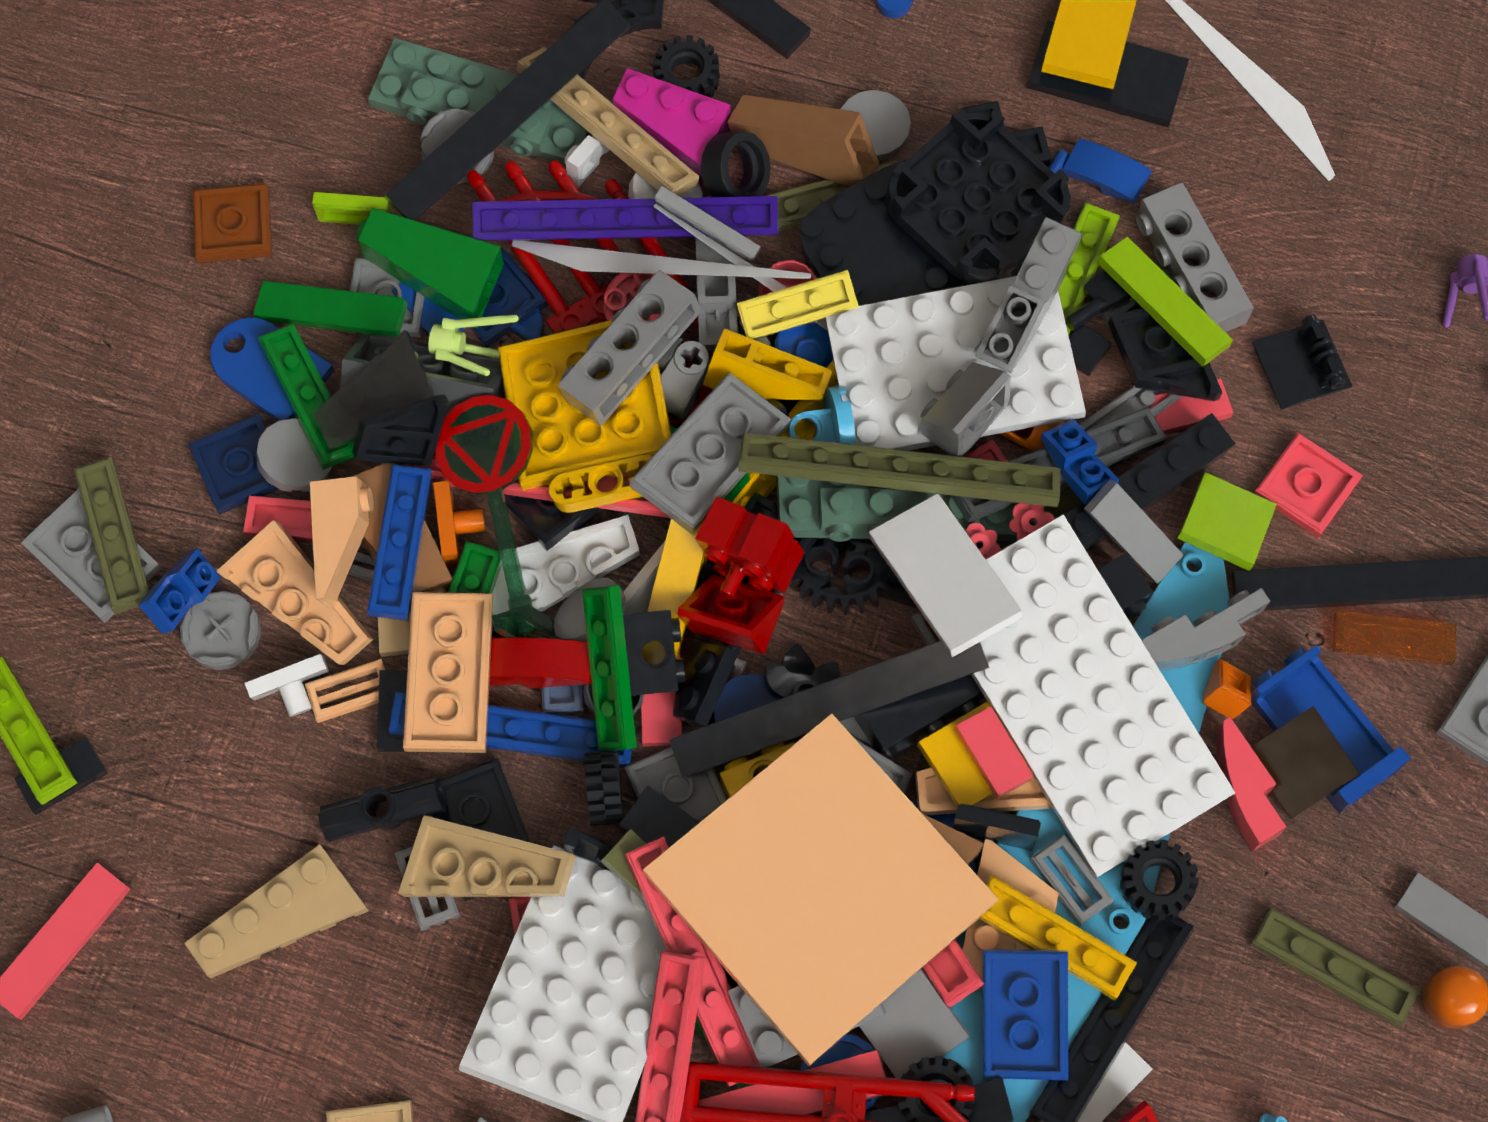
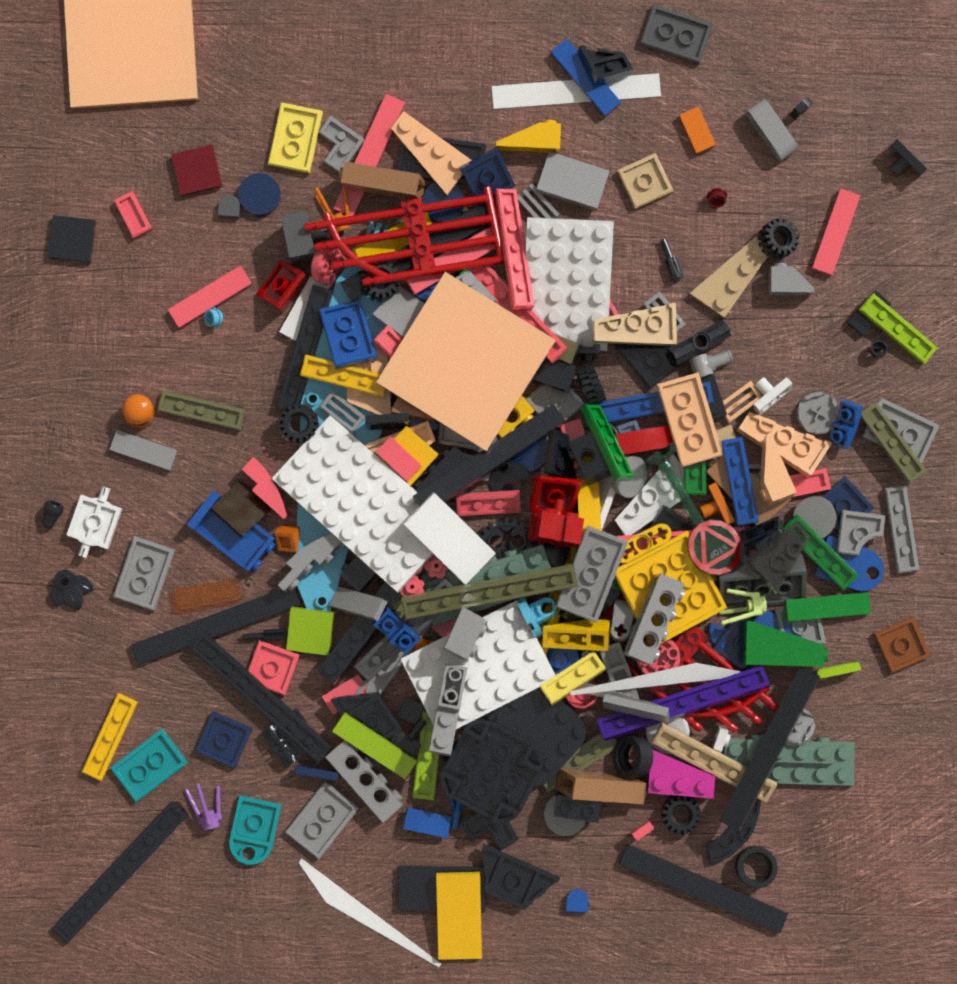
camera: 165 degrees right, 15 degrees up
(65, 713) = (878, 345): none -> black hinge
(148, 949) = (769, 243): none -> black tyre
(157, 400) = (901, 529): none -> light grey tile
(183, 873) = (787, 281): none -> light grey slope
(230, 414) = (857, 529): none -> light grey tile
(250, 1071) = (716, 197): none -> dark red plate
(378, 977) = (672, 262): none -> black axle
(385, 769) = (706, 364): none -> light grey pin
(757, 64) = (642, 830): none -> coral tile
(846, 642) = (488, 503): none -> coral tile
(876, 113) = (576, 809): none -> black brick
(987, 52) = (513, 878): none -> black wing
(1274, 294) = (317, 772): none -> dark blue tile
(1280, 226) = (322, 820): none -> light grey tile
(1302, 538) = (267, 635): none -> black axle
(1342, 441) = (260, 696): none -> black tile
(1396, 245) = (254, 827): none -> teal tile
(1418, 394) = (224, 739): none -> dark blue tile

